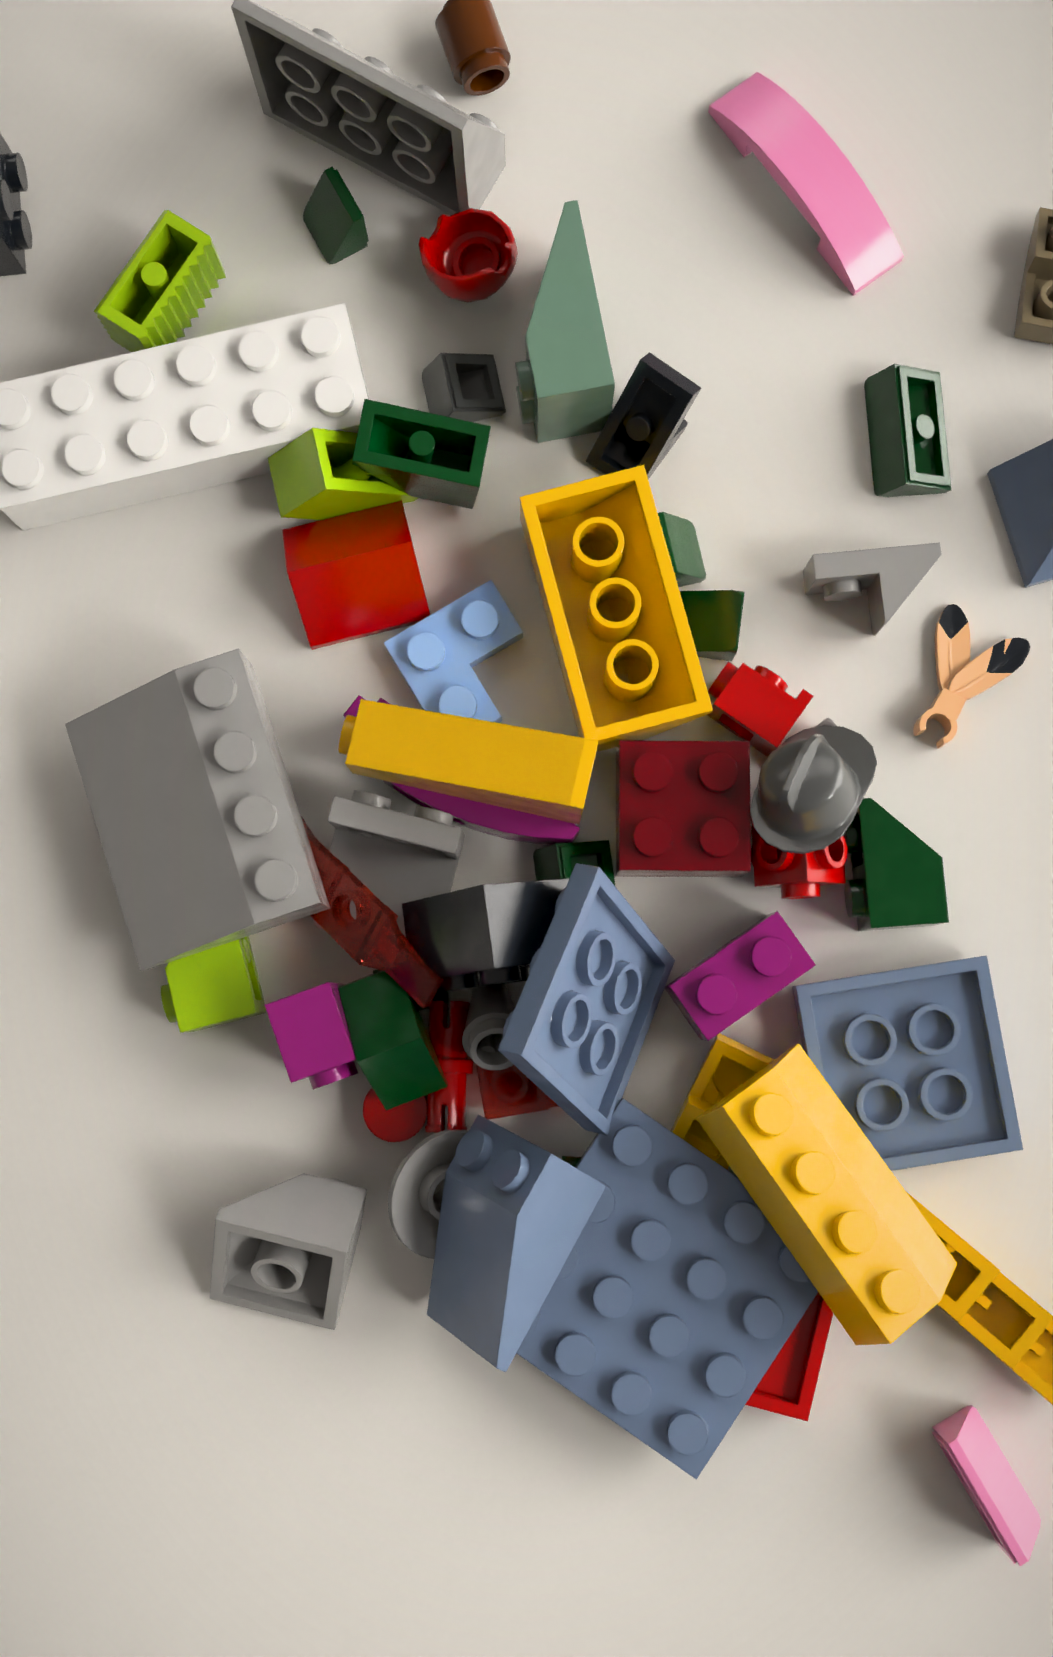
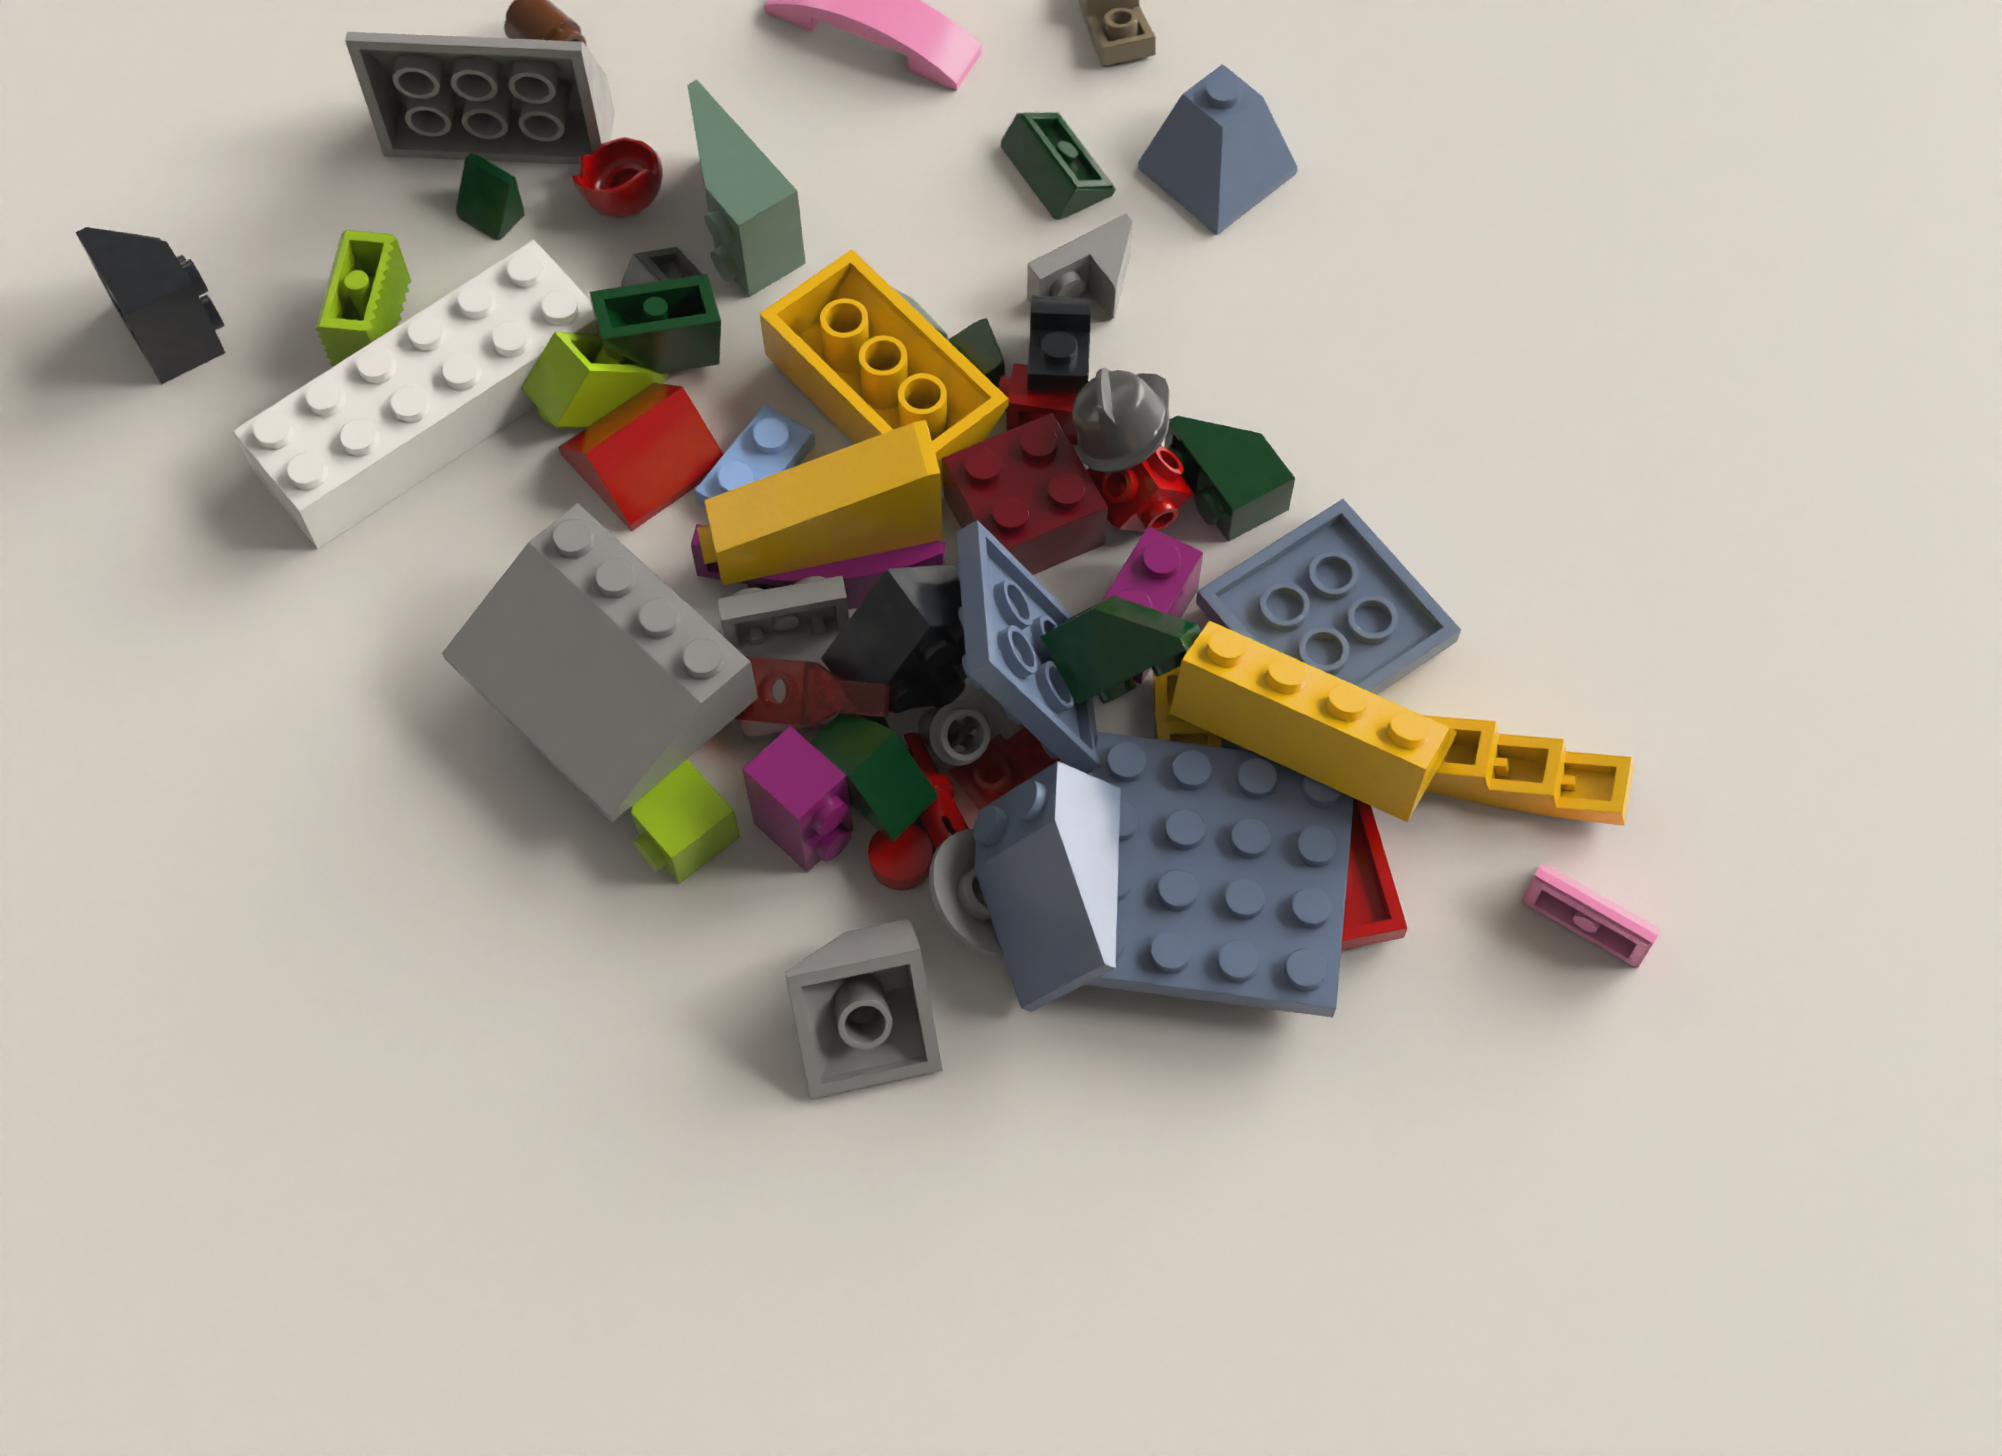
camera: 30 degrees left, 20 degrees down
(645, 419) = (833, 221): black slope -> none
(680, 1035) = (1114, 642): none -> dark green slope
(796, 666) = (1059, 343): none -> black brick
(960, 678) = (1203, 317): light nougat piece -> none

